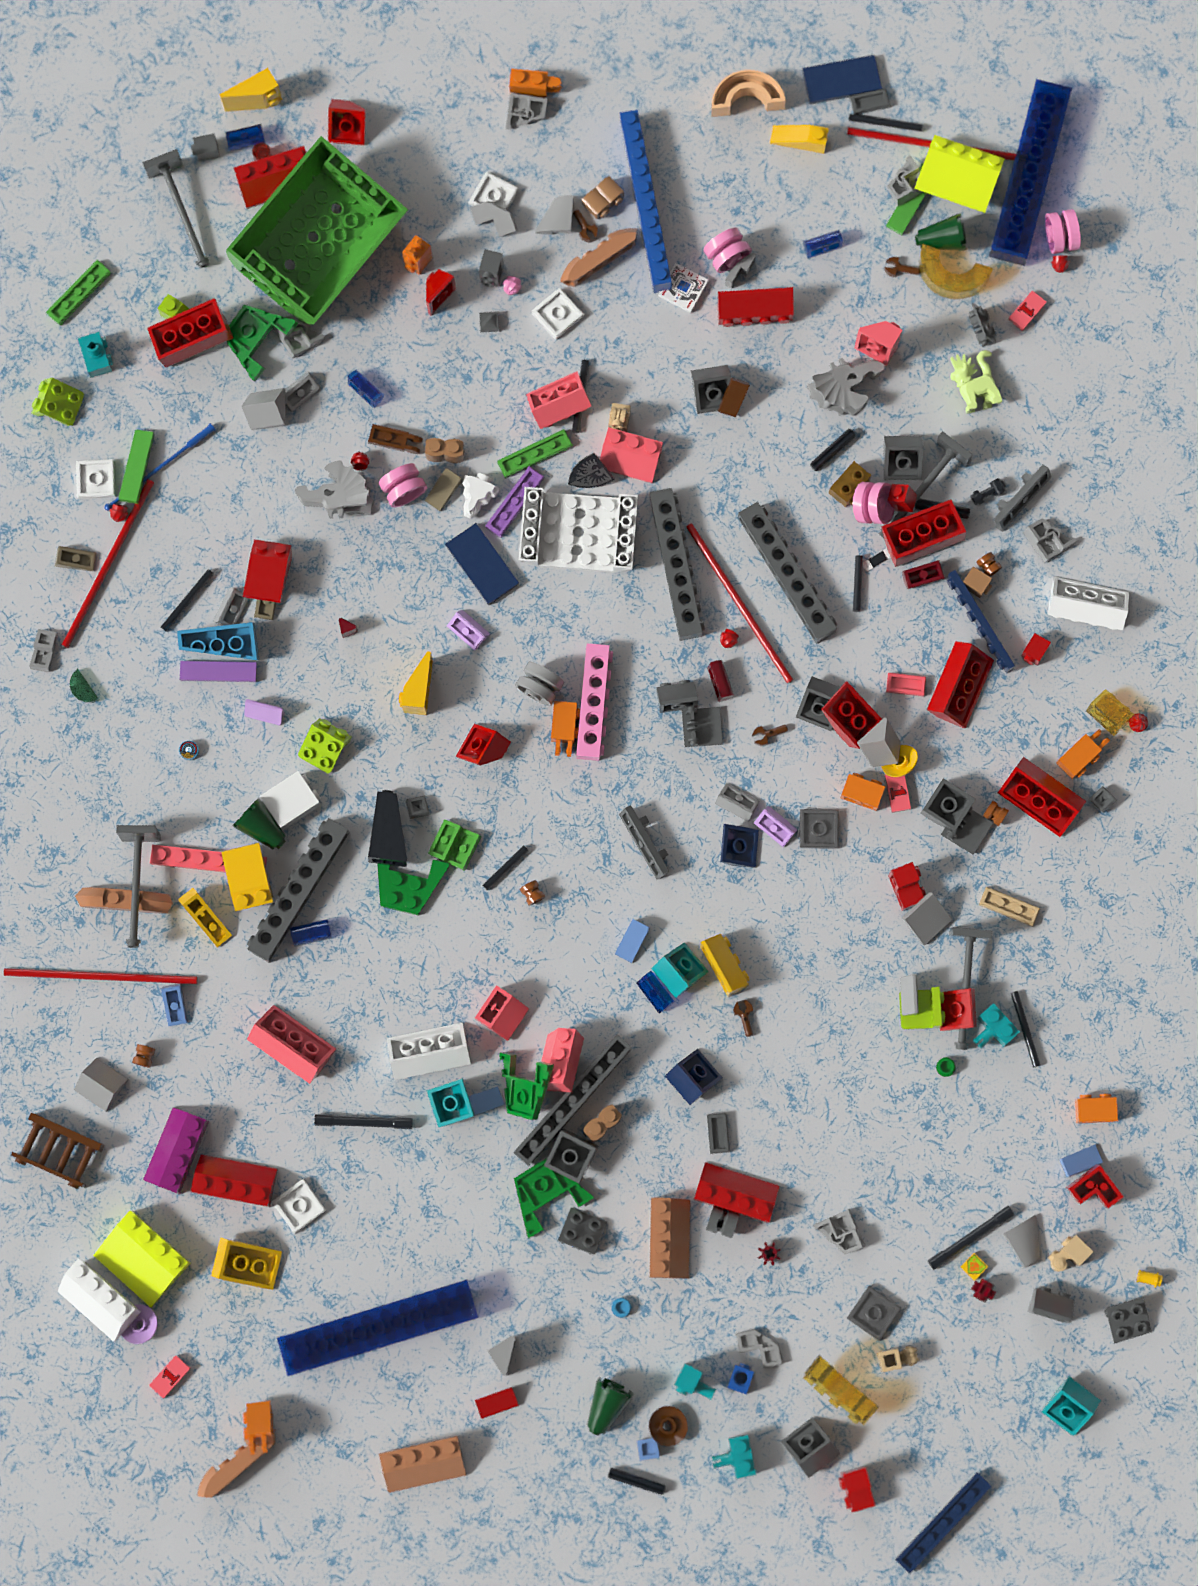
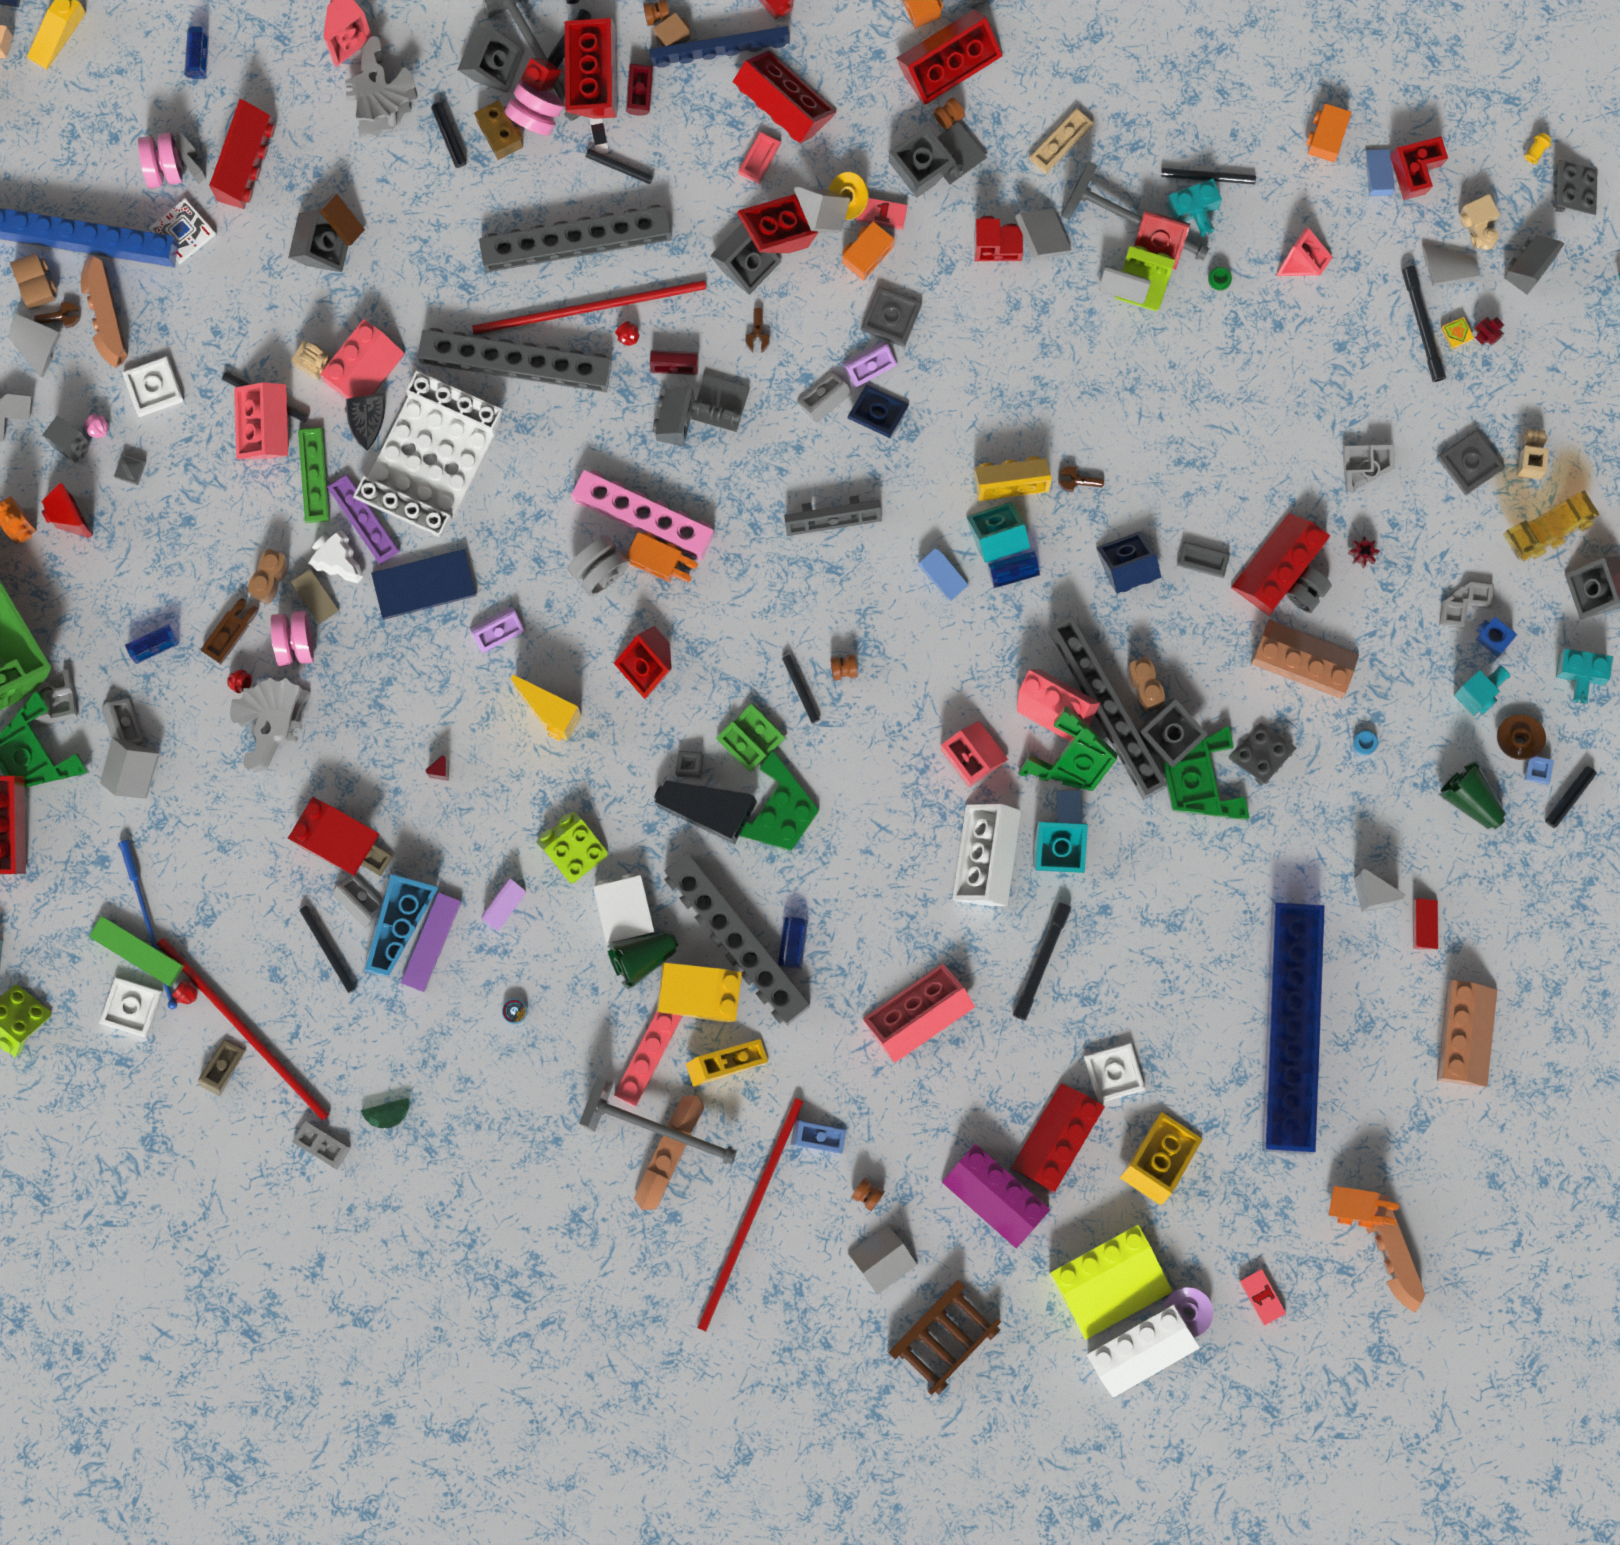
camera: 70 degrees left, 0 degrees up
(988, 1127) = (1306, 257): none -> coral slope

